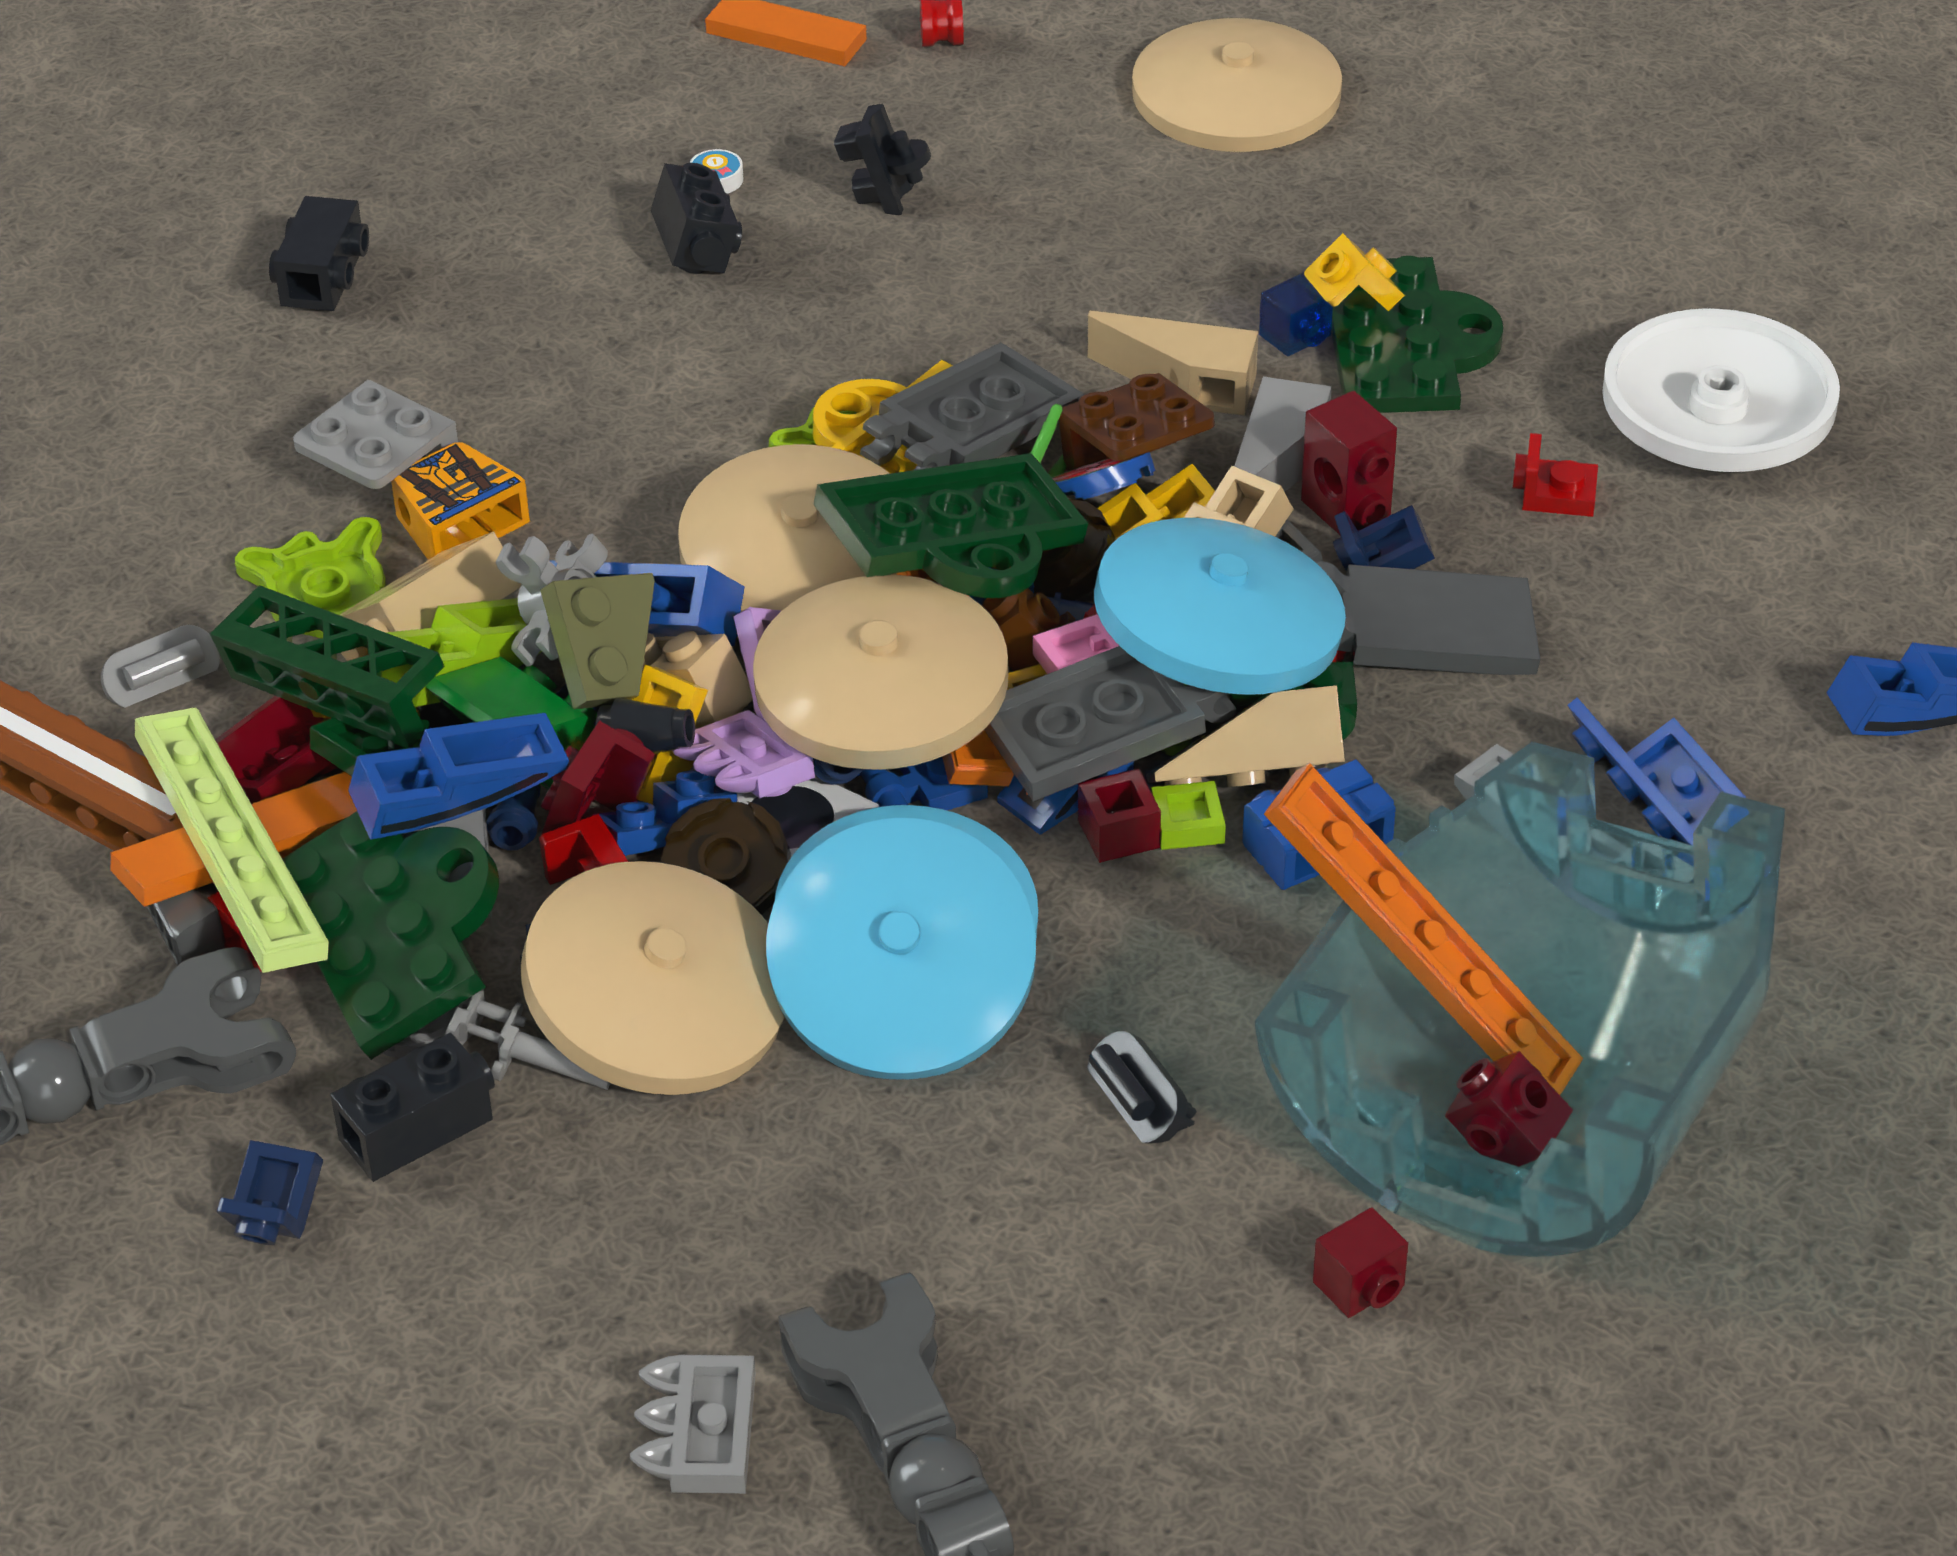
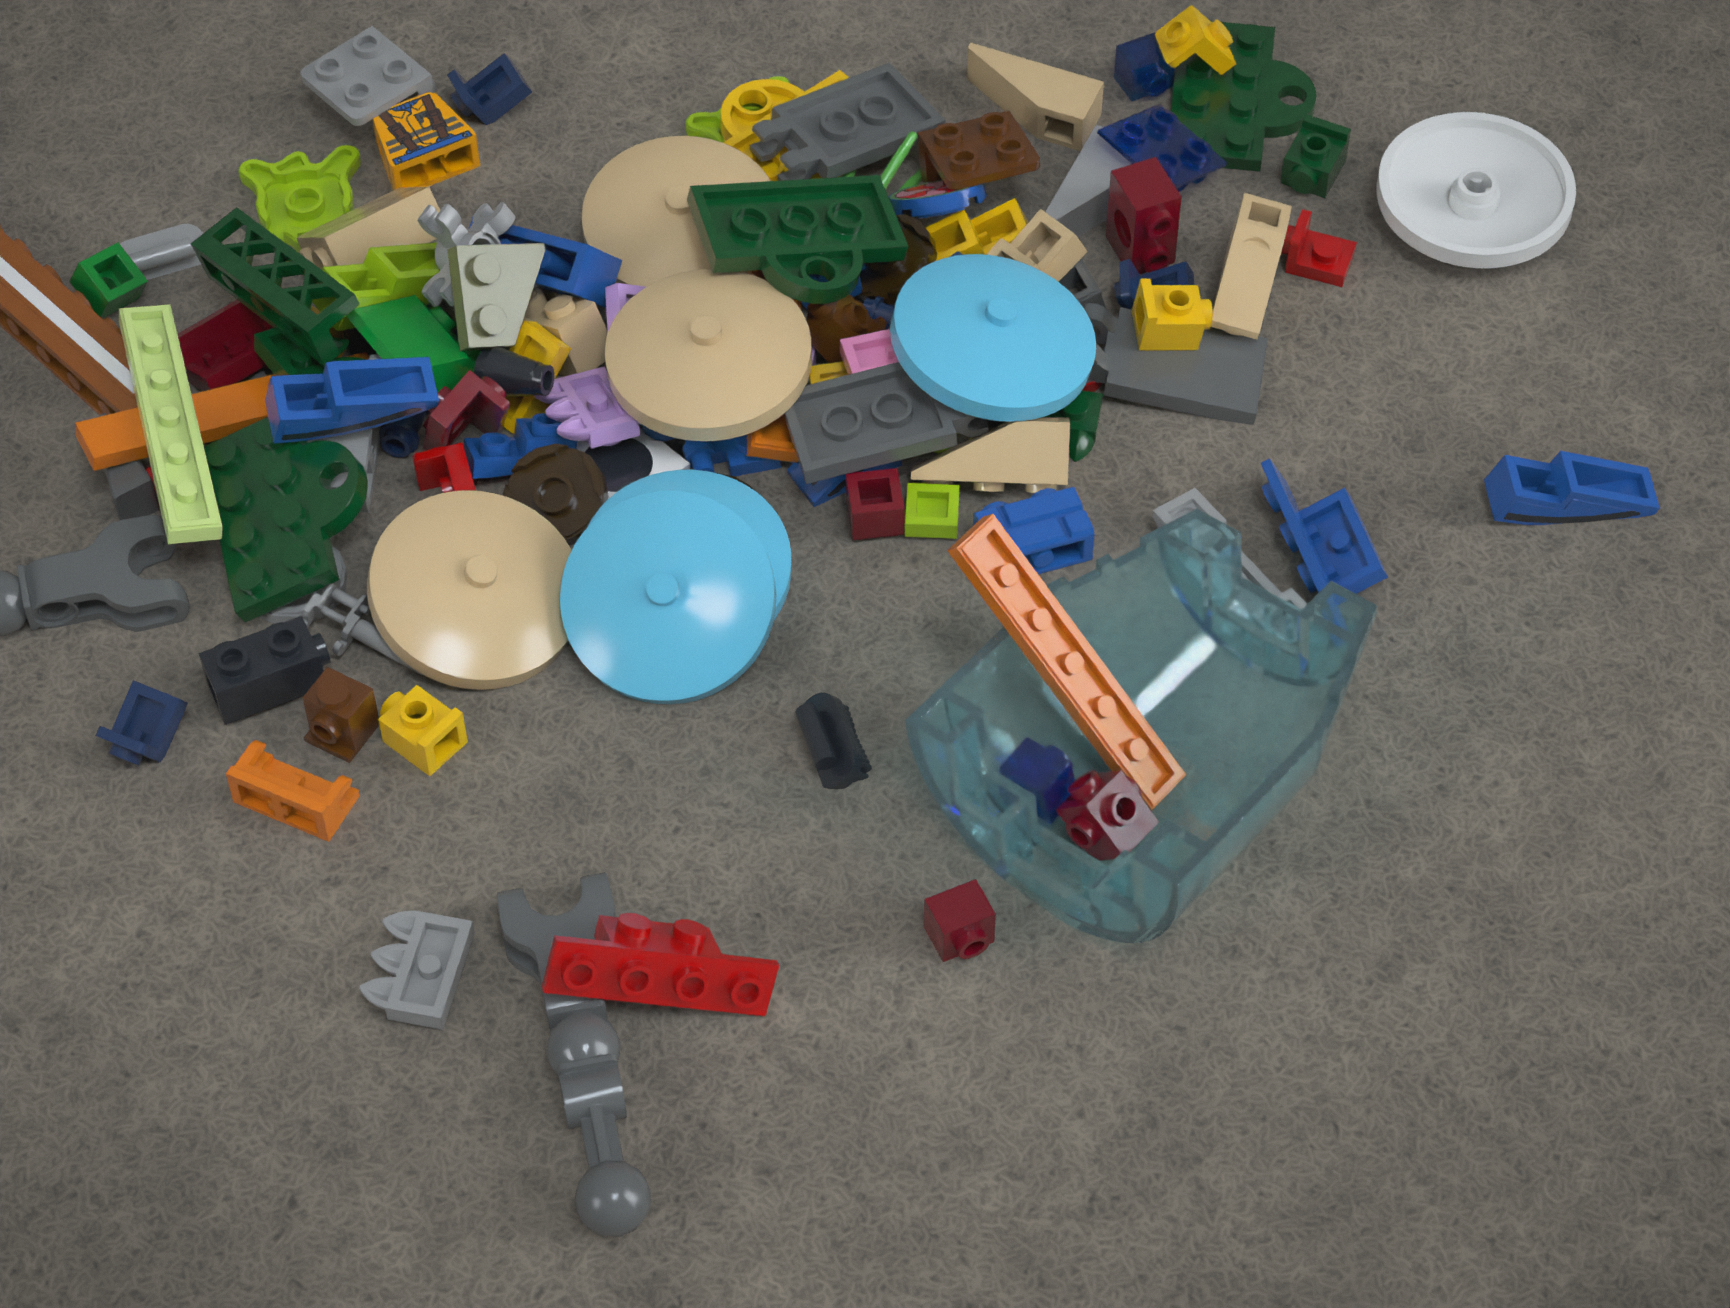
camera: 10 degrees right, 10 degrees up
(106, 696) = (109, 280): none -> green plate
(479, 1249) = (290, 793): none -> orange hinge
(522, 1143) = (340, 714): none -> reddish brown brick
(525, 436) = (490, 91): none -> dark blue bracket
(628, 1146) = (422, 728): none -> yellow brick
(1012, 1367) = (659, 966): none -> red bracket
(1339, 372) = (1161, 135): none -> clear blue hinge
(1413, 563) = (1170, 316): none -> yellow brick
(1423, 1070) = (1043, 772): none -> clear blue plate
(1488, 499) = (1250, 266): none -> tan slope
(1523, 381) = (1315, 156): none -> dark green brick

